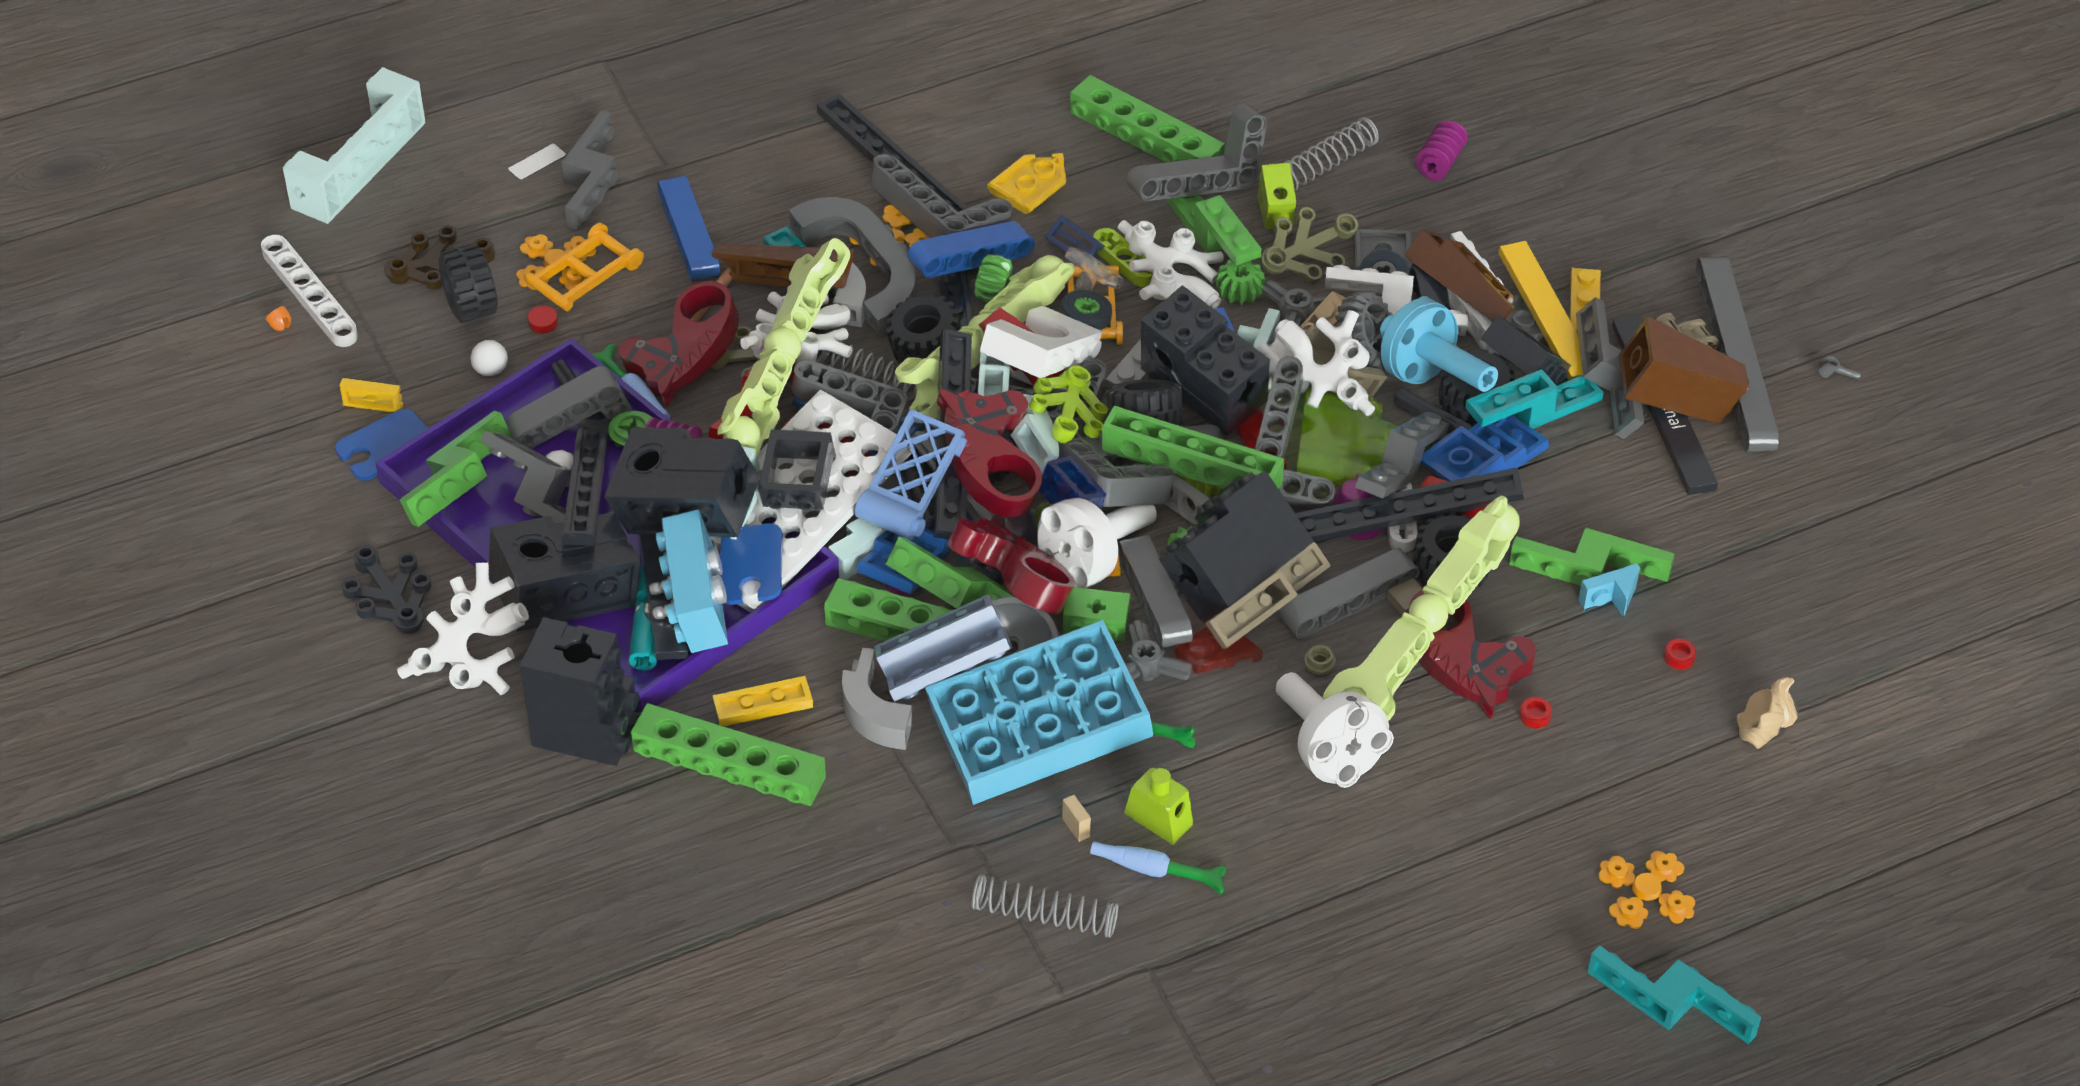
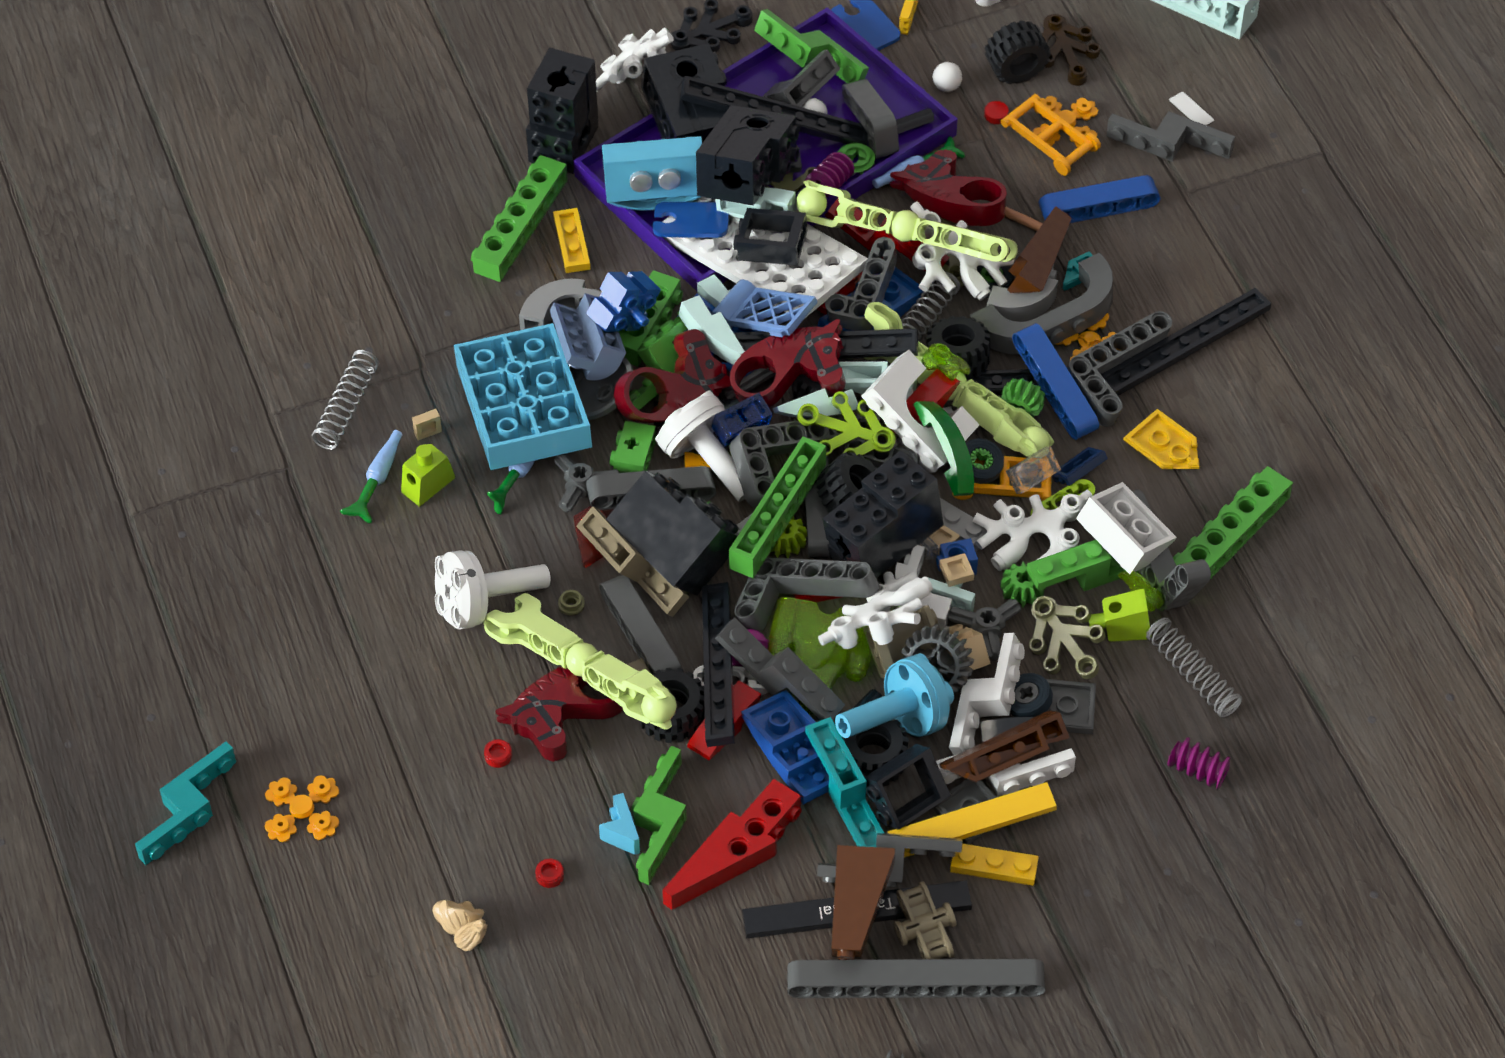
camera: 95 degrees right, 5 degrees up
(913, 596) = (624, 301): none -> blue brick
(934, 527) = (714, 327): none -> light aqua slope
(973, 318) = (941, 358): none -> clear neon green plate
(1060, 320) = (961, 473): none -> green slope
(1191, 174) = (1125, 527): none -> white slope
(1240, 188) = (1136, 581): none -> clear neon green plate
(1244, 318) = (956, 570): none -> tan tile
(1615, 495) = (716, 858): none -> red brick

